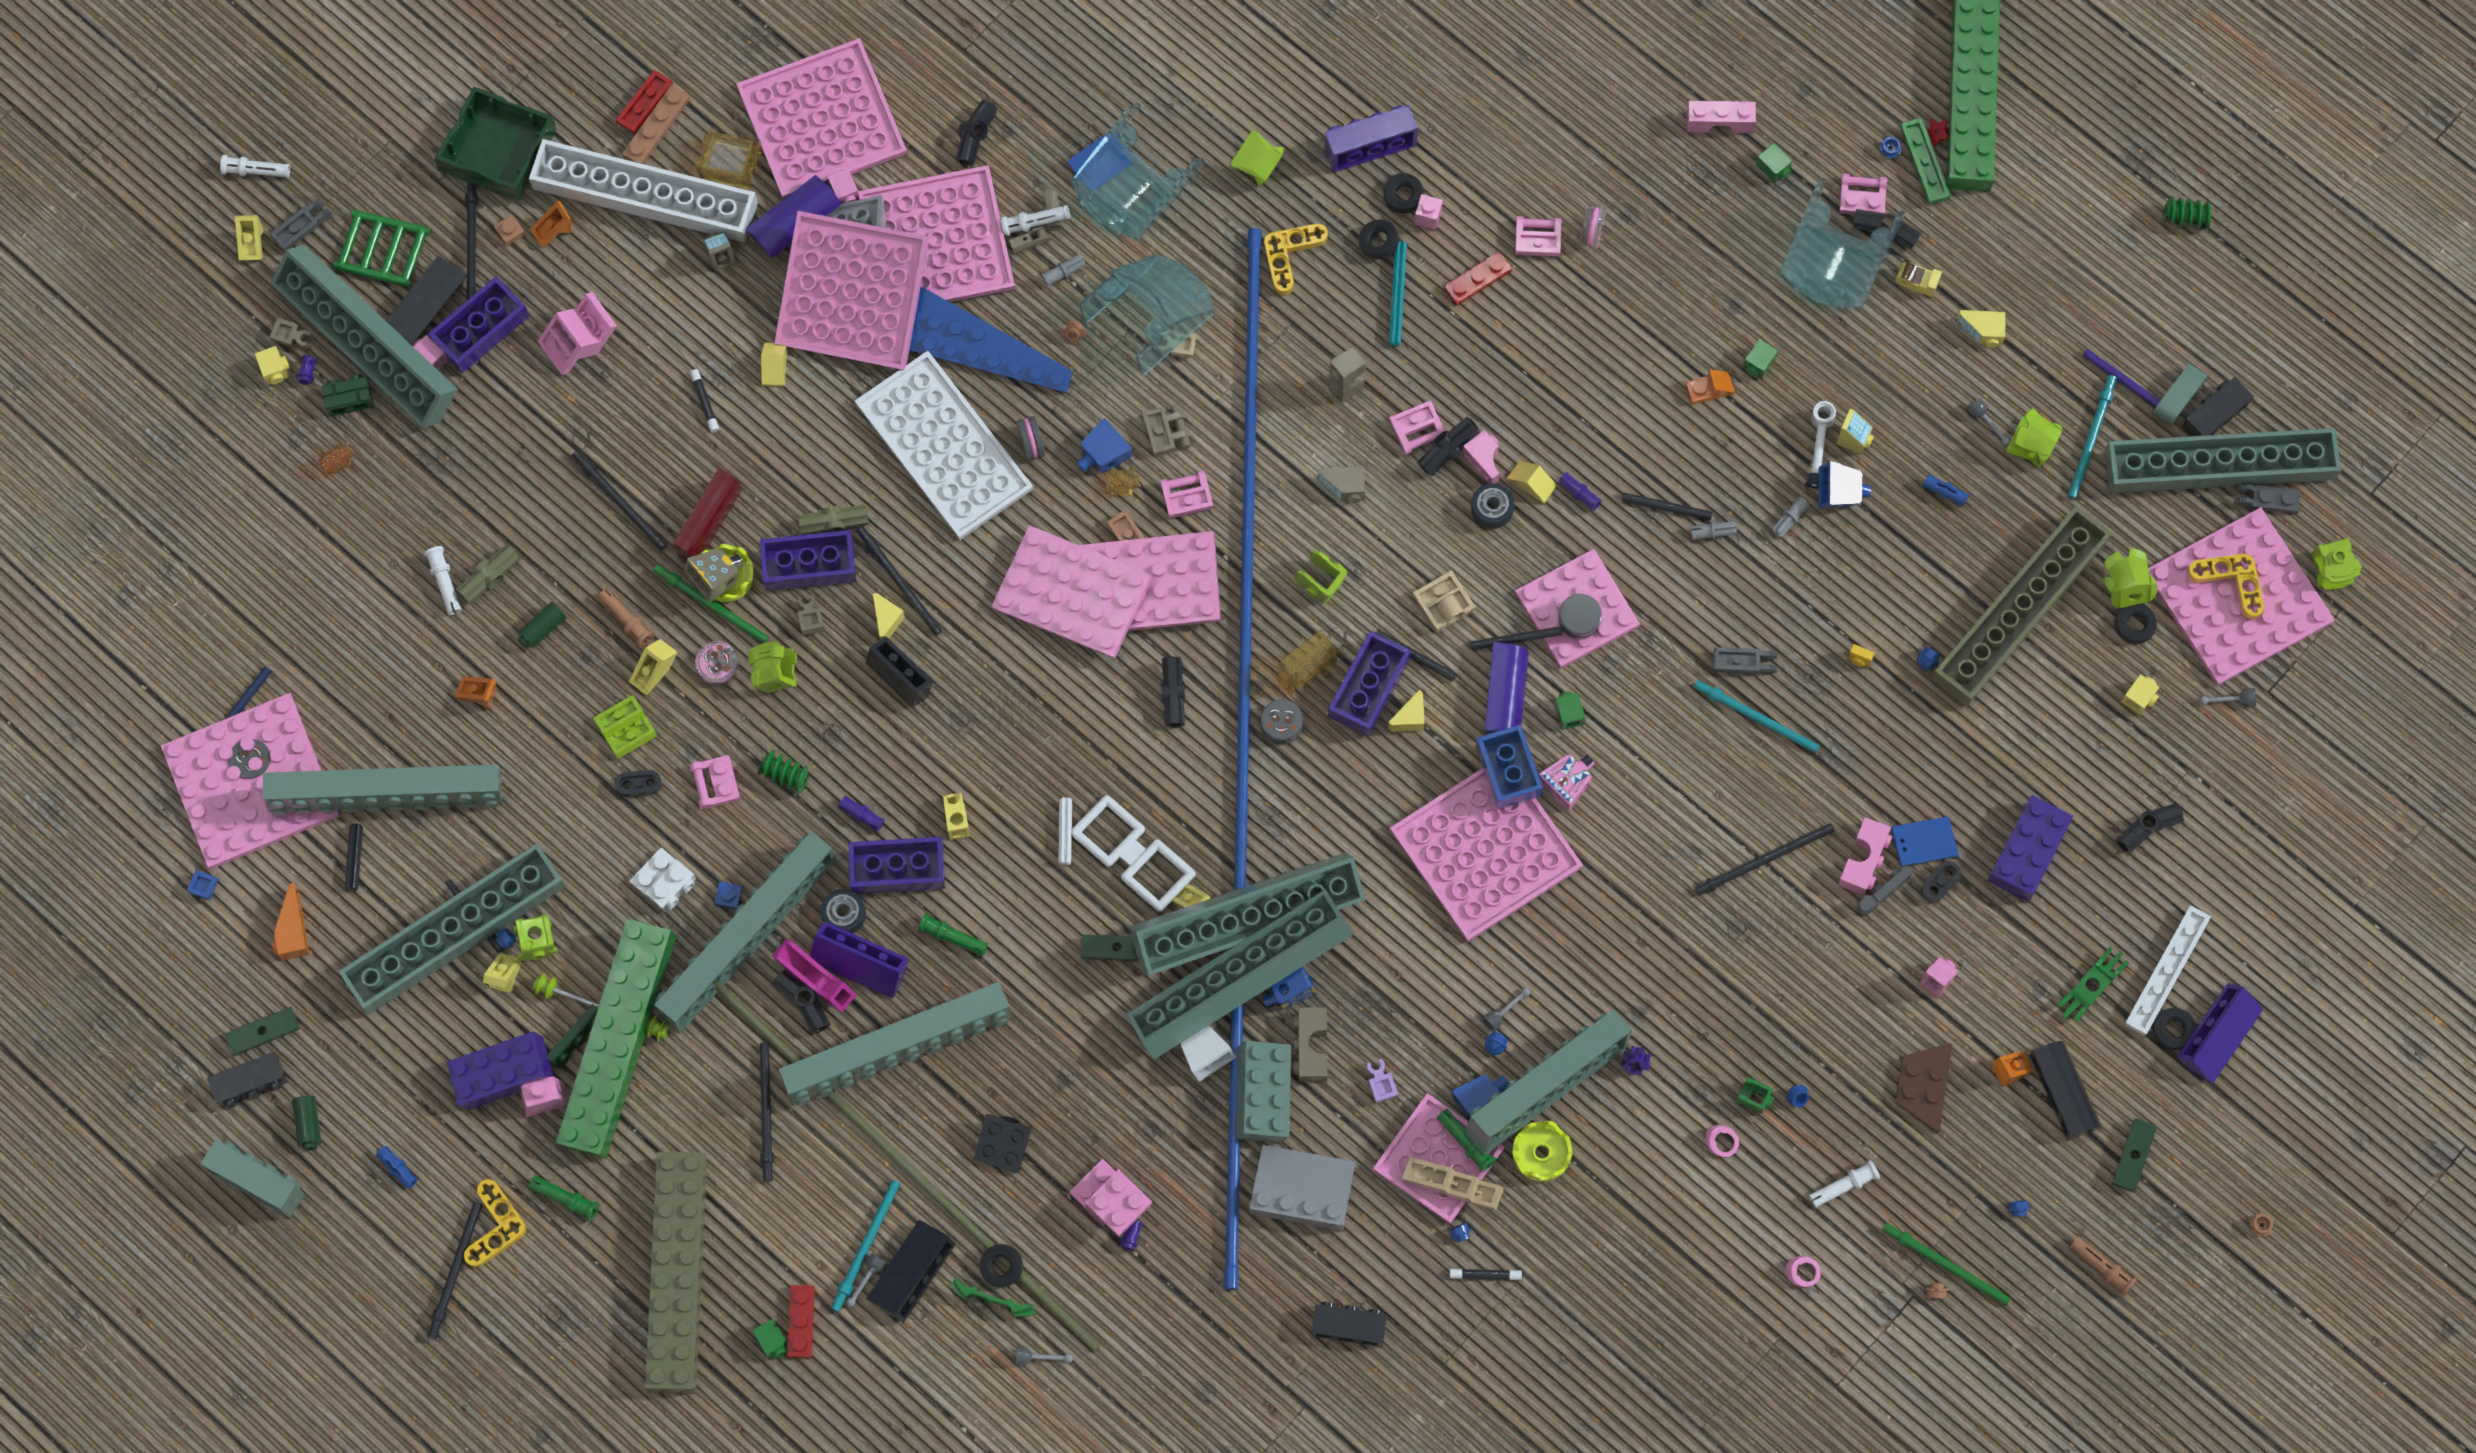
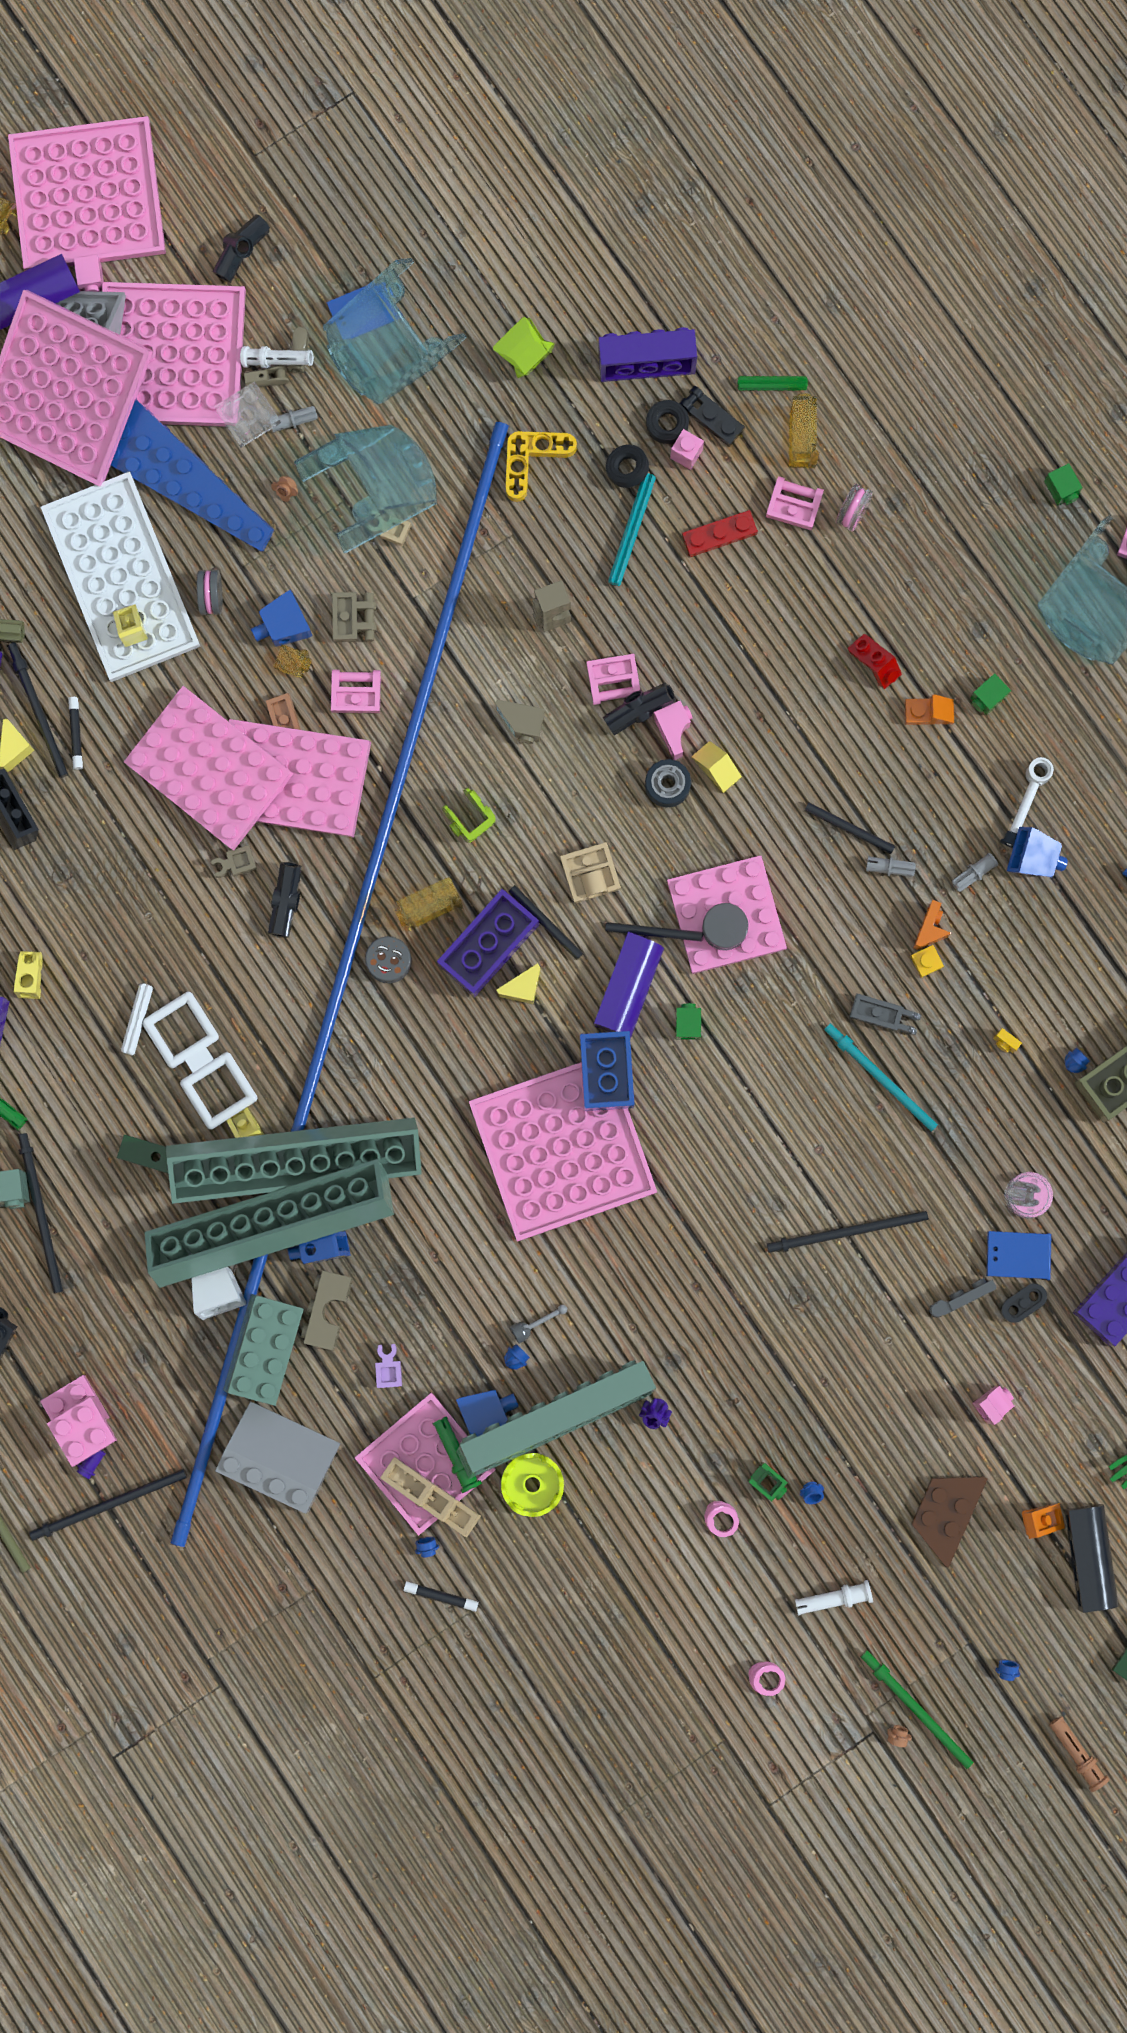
camera: 15 degrees right, 10 degrees up
(938, 590) = (75, 733): none -> black bar
(967, 484) = (129, 625): none -> light yellow slope
(995, 973) = (26, 1152): none -> black bar
(1022, 275) = (247, 414): none -> clear plate
(1107, 1305) = (48, 1528): none -> black bar
(1120, 669) = (238, 861): none -> dark tan plate
(1349, 1324) = (286, 1614): black brick -> none
(1443, 179) = (712, 417): none -> black plate
(1488, 137) = (772, 383): none -> green axle
(1529, 172) = (803, 432): none -> clear yellow window
(1567, 779) = (667, 1095): torso -> none
(1580, 491) = (763, 790): dark purple pin -> none
(1651, 352) = (877, 659): none -> red bracket
(1707, 114) = (1009, 415): bright pink arch -> none
(1765, 579) = (928, 933): none -> orange slope
(1769, 605) = (927, 961): none -> yellow plate
(1855, 433) = (1067, 800): slope -> none
(1858, 875) = (942, 1276): bright pink arch -> none
(1918, 786) = (1028, 1195): none -> clear head

